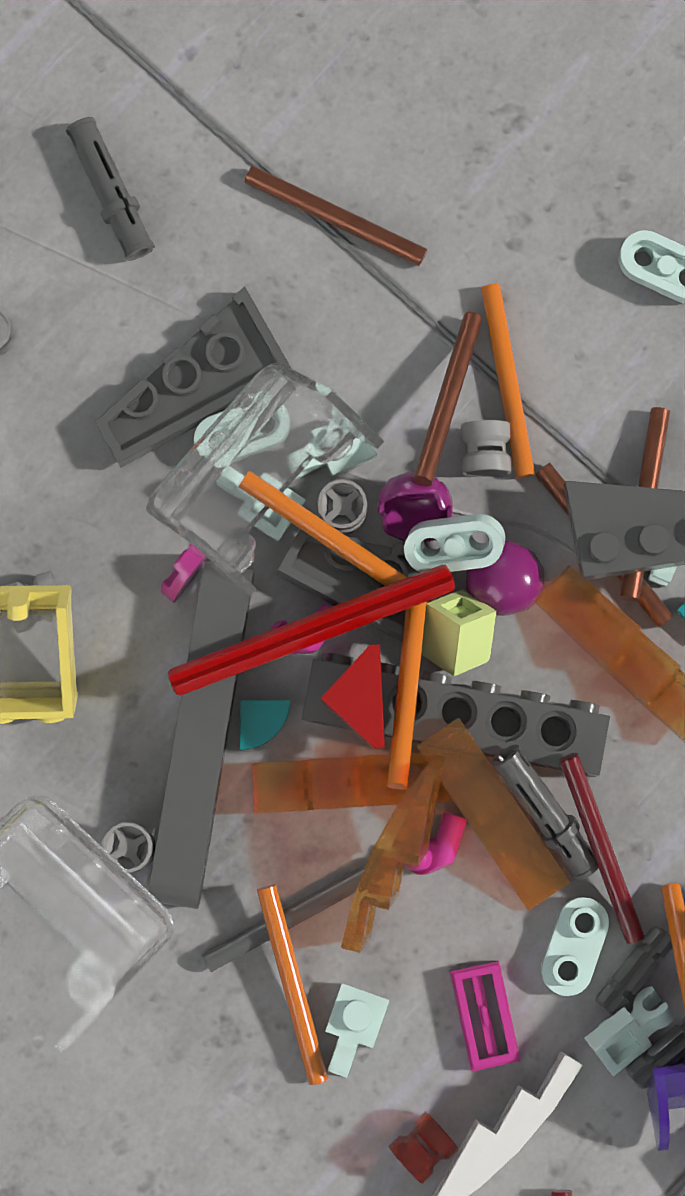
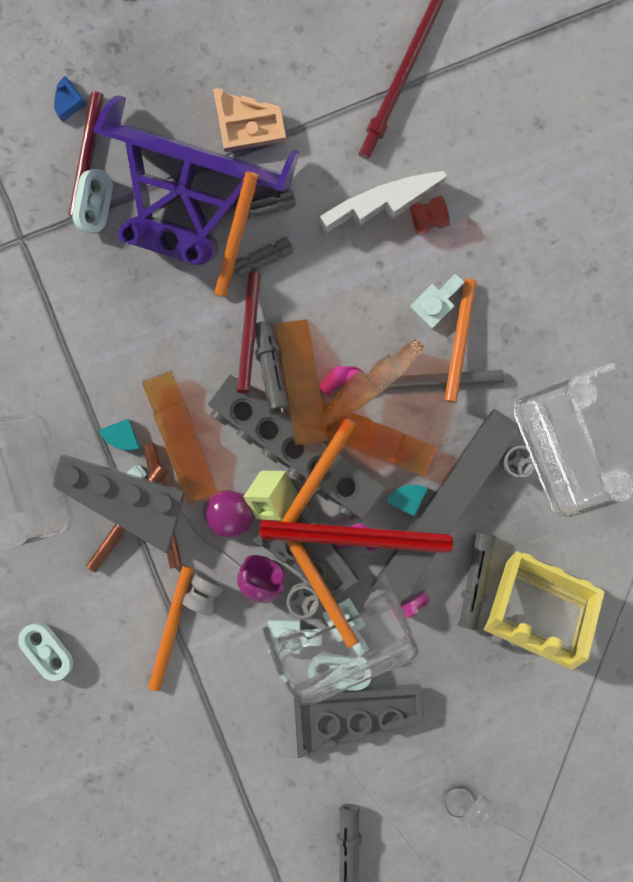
camera: 155 degrees left, 5 degrees up
(95, 592) = (470, 618): none -> dark grey pin
(335, 215) = (224, 774): copper bar -> none
(358, 698) = (347, 484): red slope -> none
(447, 399) = (211, 634): copper bar -> none
(456, 542) = (247, 547): light aqua plate -> none
(475, 973) = (353, 299): dark pink tile -> none
(571, 945) = (291, 286): light aqua plate -> none
(625, 1035) = (286, 223): light aqua plate -> none

